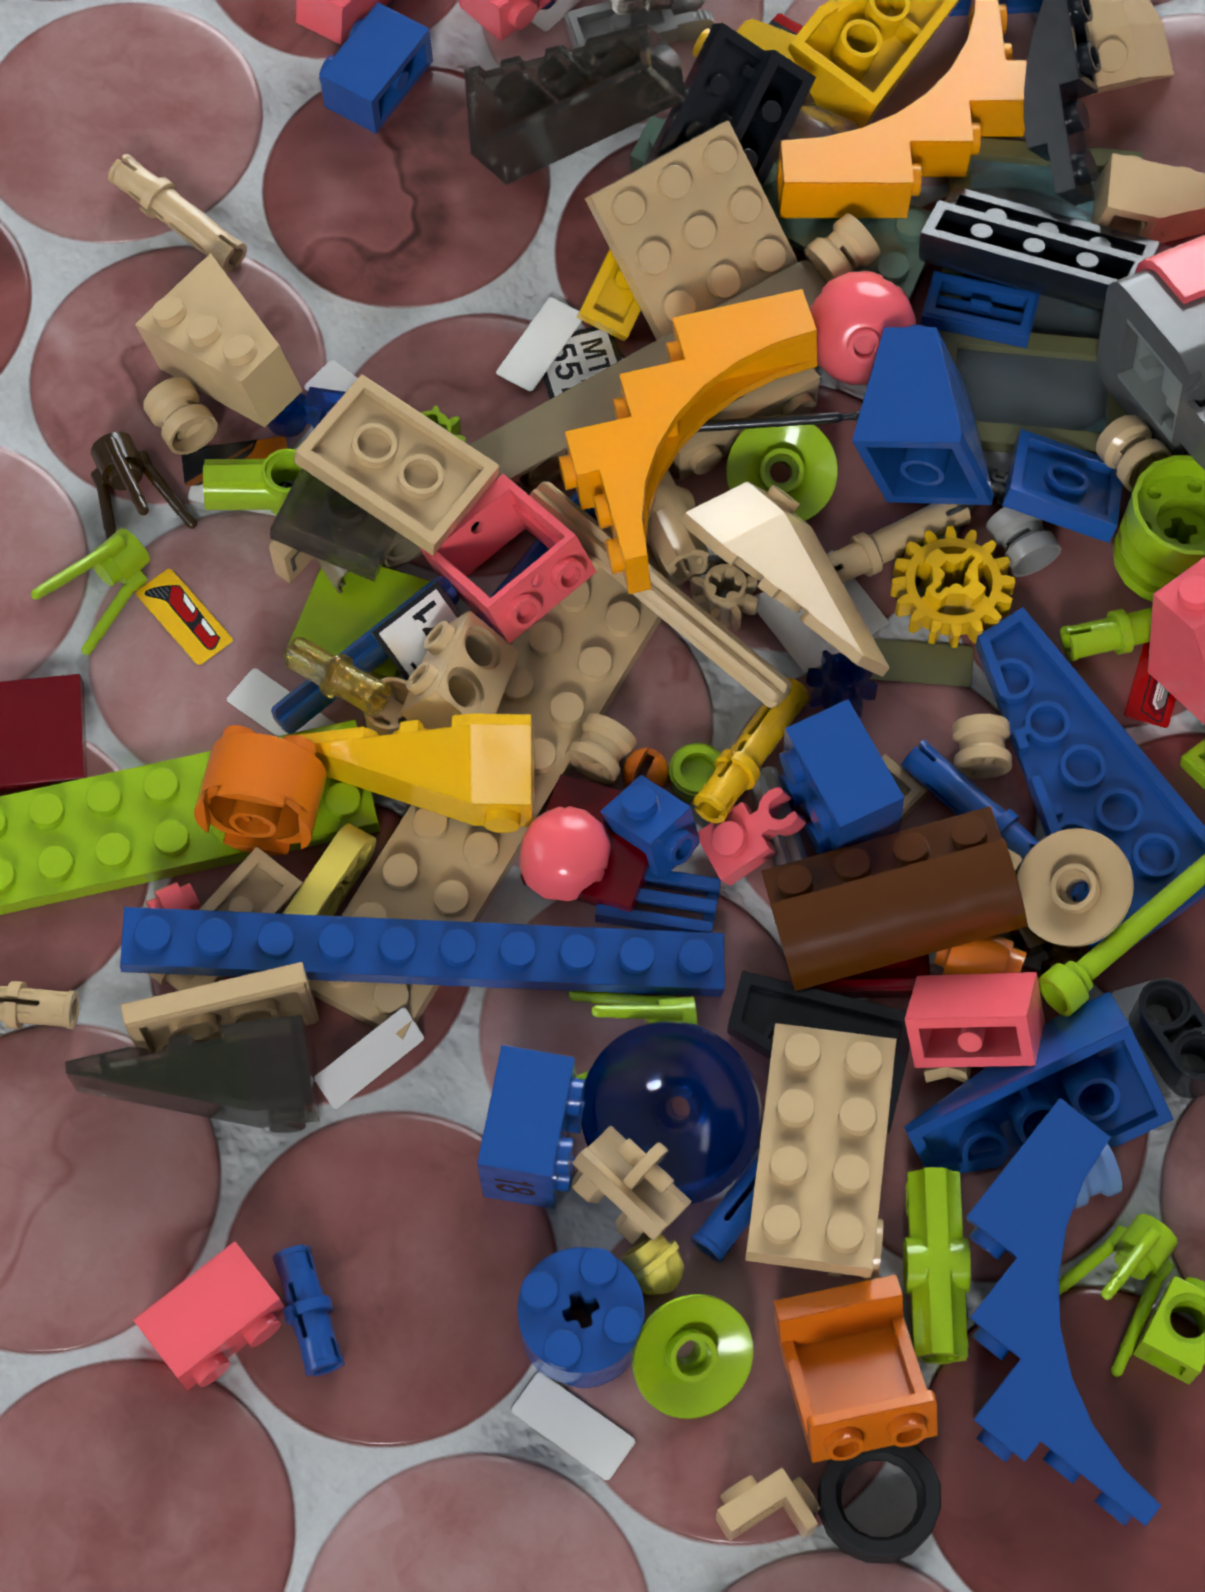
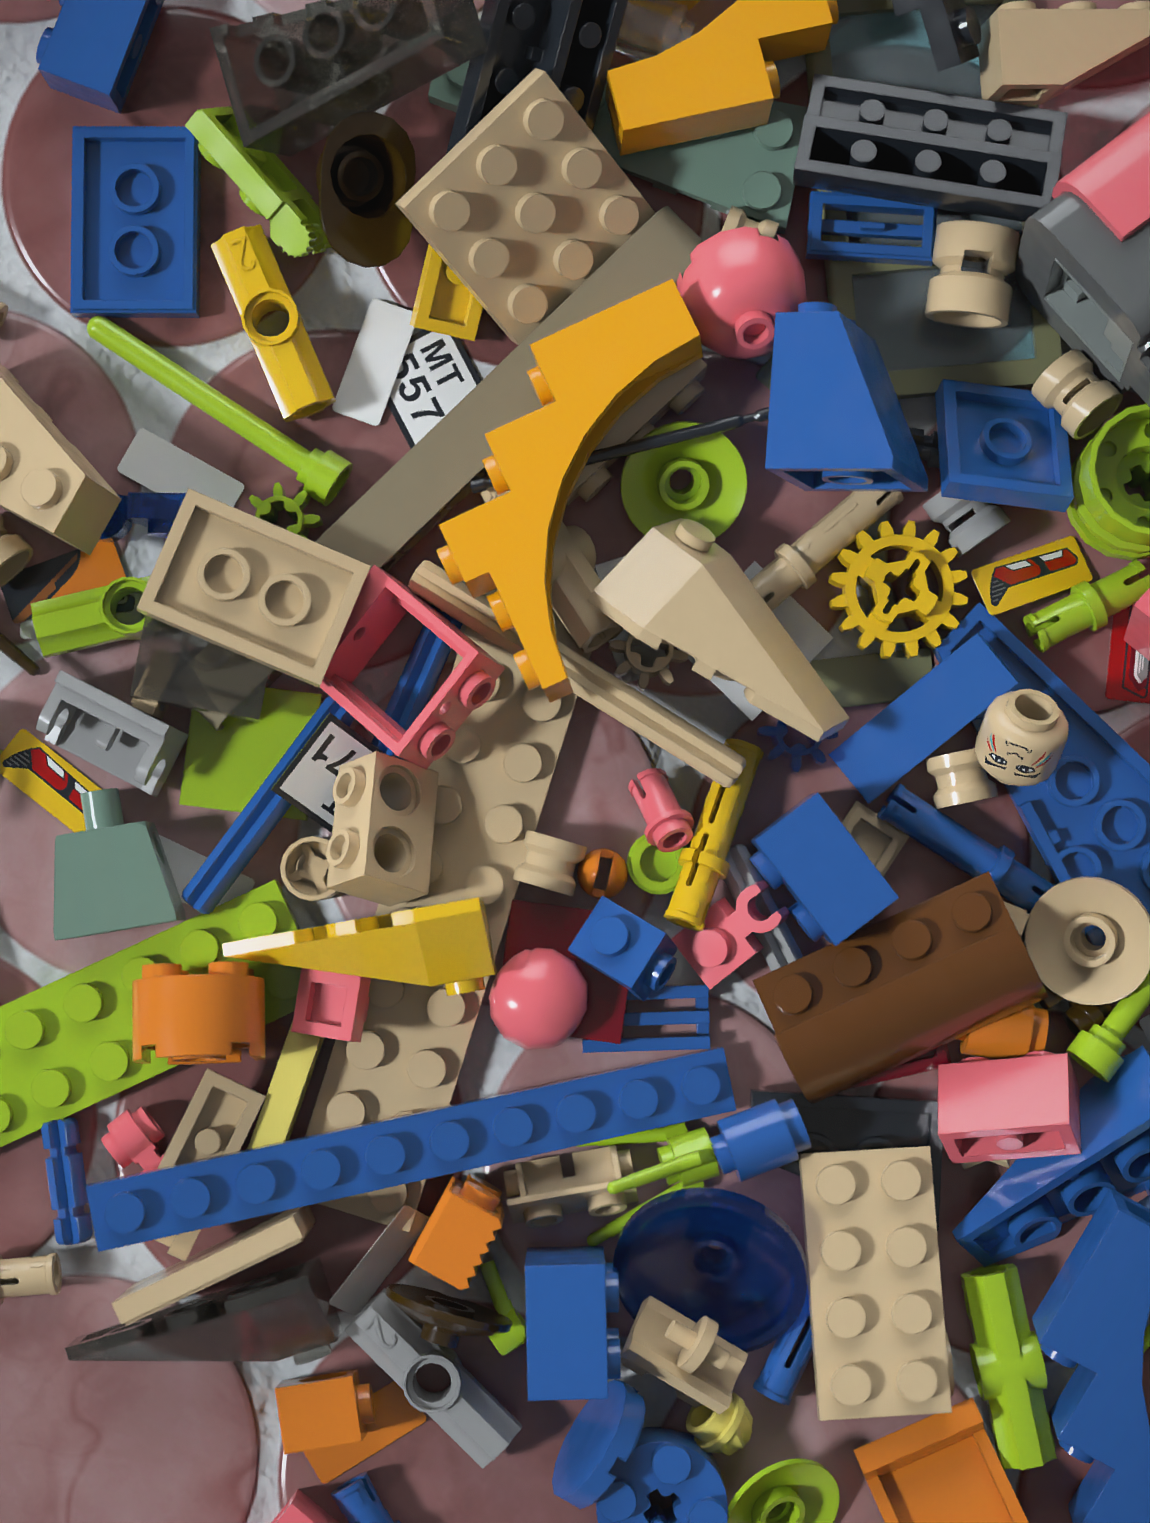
camera: 15 degrees left, 20 degrees up
(105, 937) = (66, 1181): none -> blue axle
(211, 685) = (111, 873): none -> sand green torso
(245, 573) = (110, 733): none -> light grey hinge
(285, 1175) = (324, 1410): none -> orange brick
(315, 1214) = (393, 1420): none -> orange sticker
(337, 676) = (247, 854): clear yellow axle -> none
(368, 209) = (135, 222): none -> blue tile
(381, 812) = (331, 1005): none -> coral tile
(411, 1198) = (463, 1408): none -> light grey piece
(420, 1099) = (445, 1316): none -> dark brown dish
(448, 1028) = (460, 1231): none -> orange brick
(469, 316) = (257, 289): none -> yellow piece
(469, 1142) = (509, 1341): none -> lime hand
(477, 412) = (318, 471): none -> lime piece
(481, 193) = (263, 182): none -> lime hinge
(534, 1246) = (594, 1442): none -> blue tile
(554, 203) = (359, 180): none -> dark brown piece
(574, 1034) = (549, 1196): none -> tan hinge
(710, 728) = (666, 822): none -> coral pin
(740, 1001) = (760, 1139): none -> blue brick
(844, 249) = (702, 190): tan wheel -> none
(957, 688) = (923, 717): none -> blue tile
(1039, 705) = (1021, 737): none -> tan head
(1058, 348) = (968, 296): none -> tan wheel
(1071, 598) = (1031, 575): none -> yellow sticker

